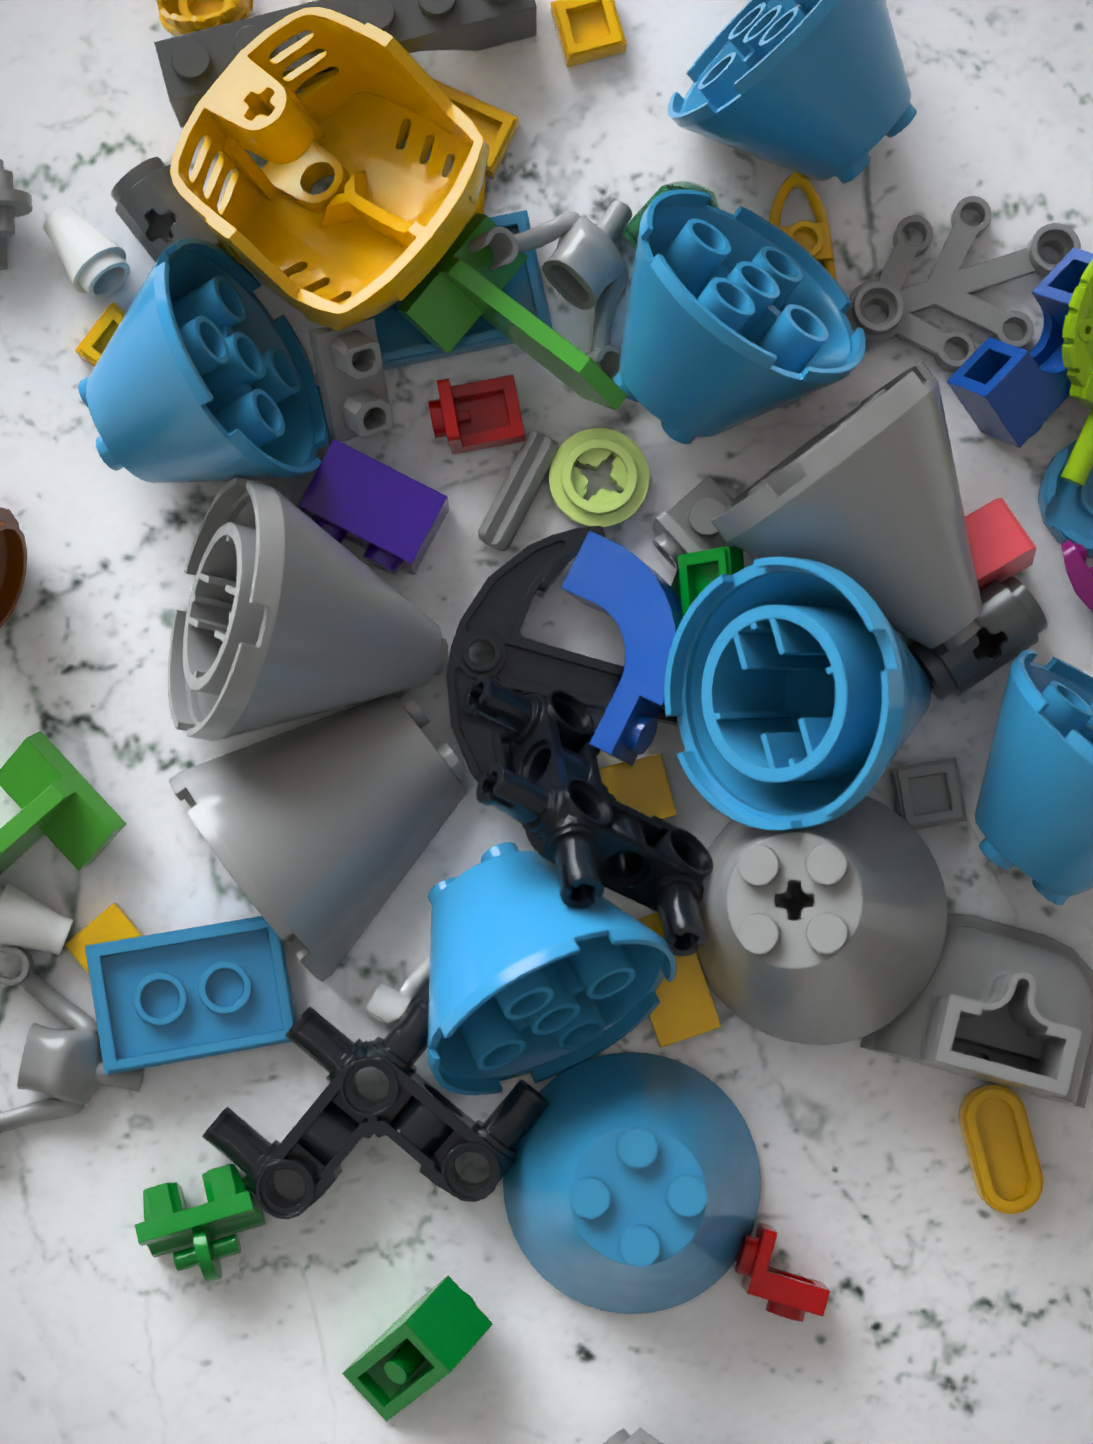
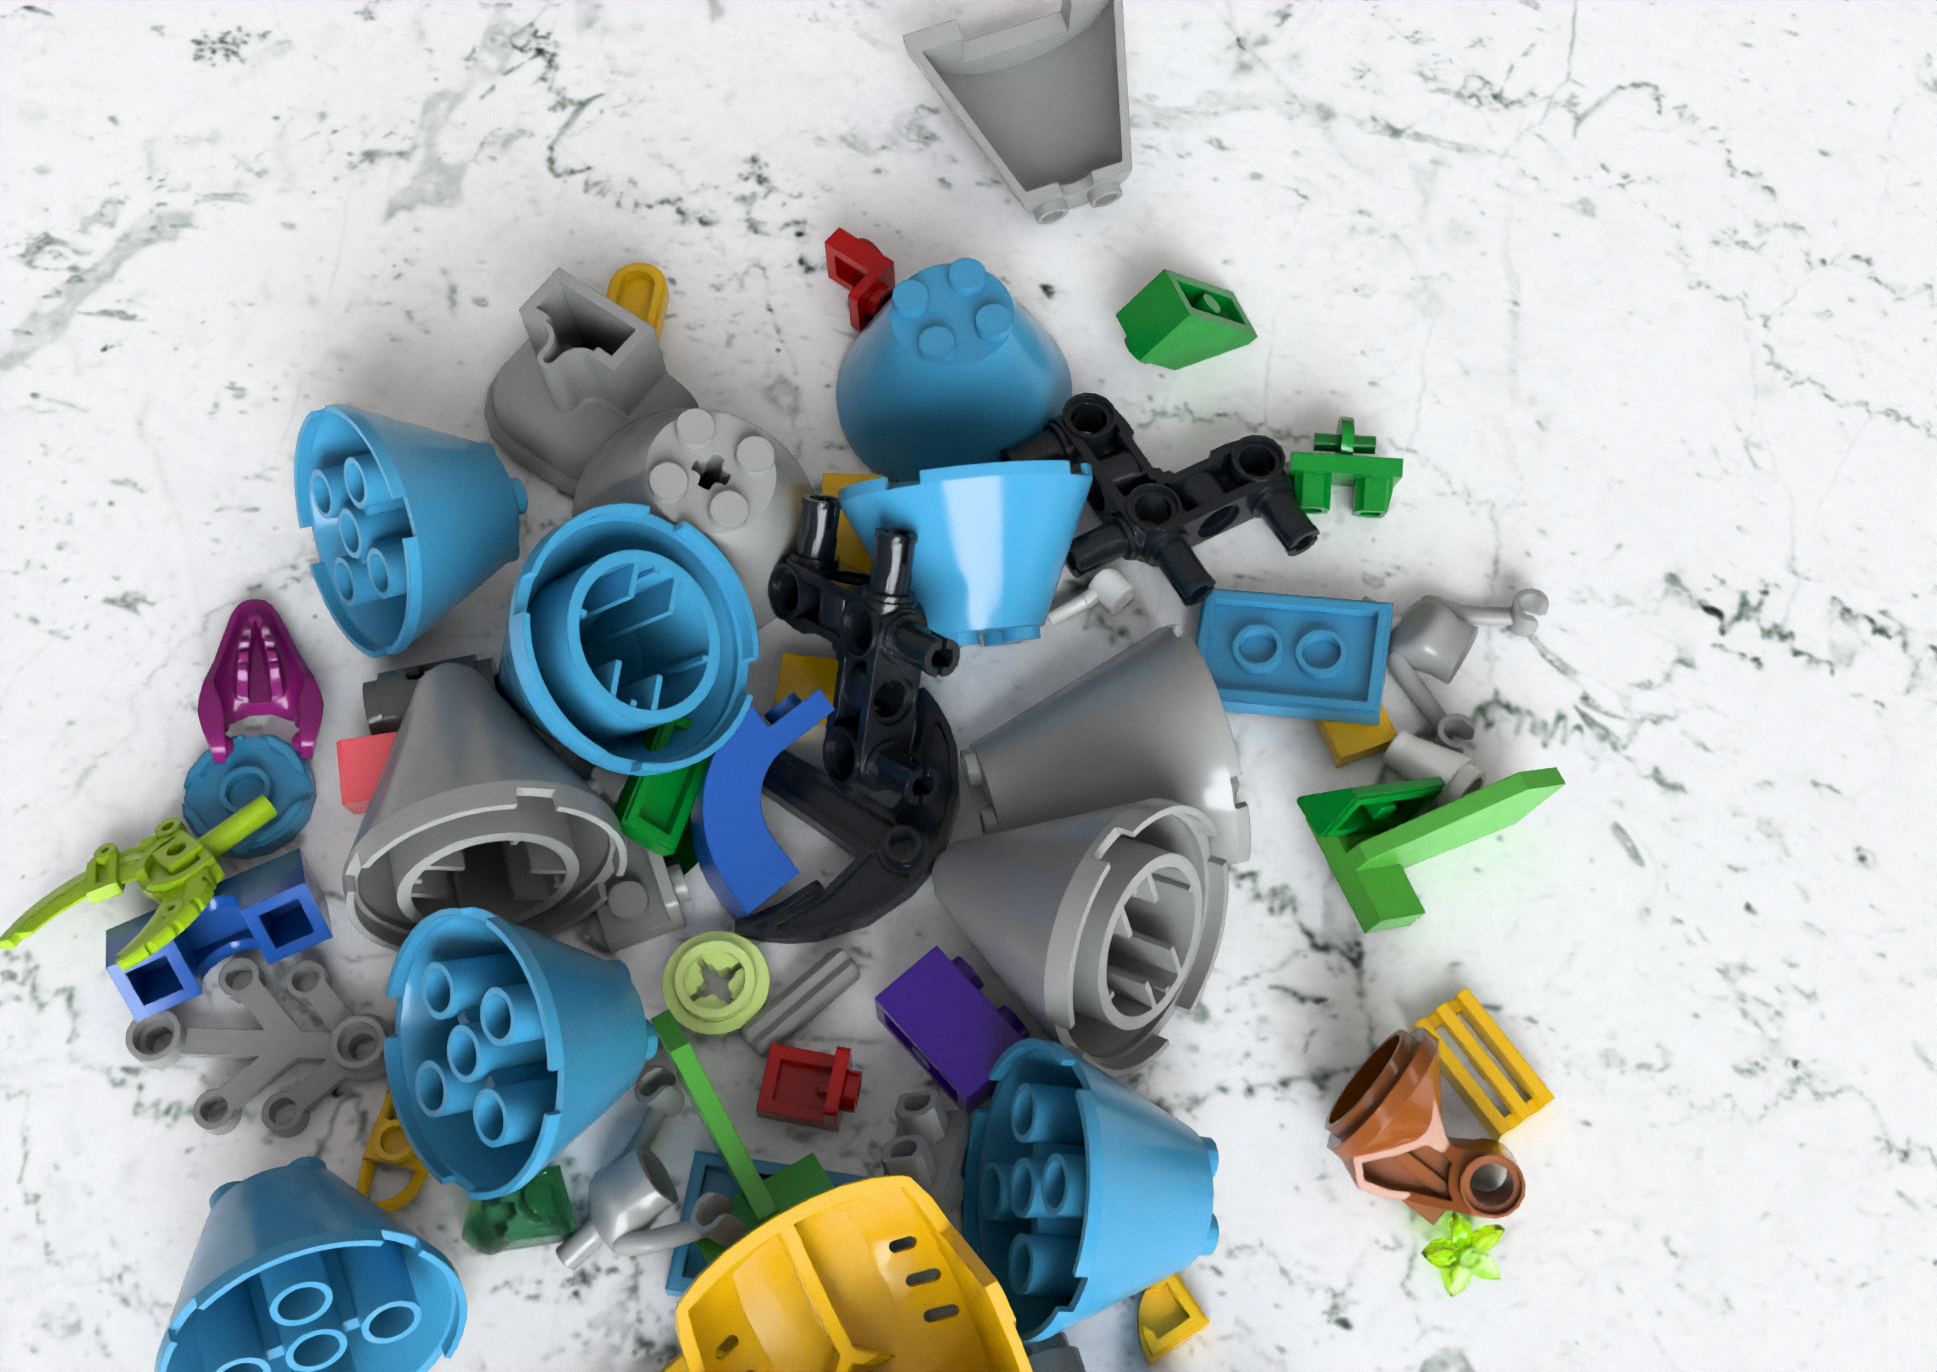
camera: 155 degrees left, 20 degrees down
(71, 850) = (1368, 806): none -> green slope

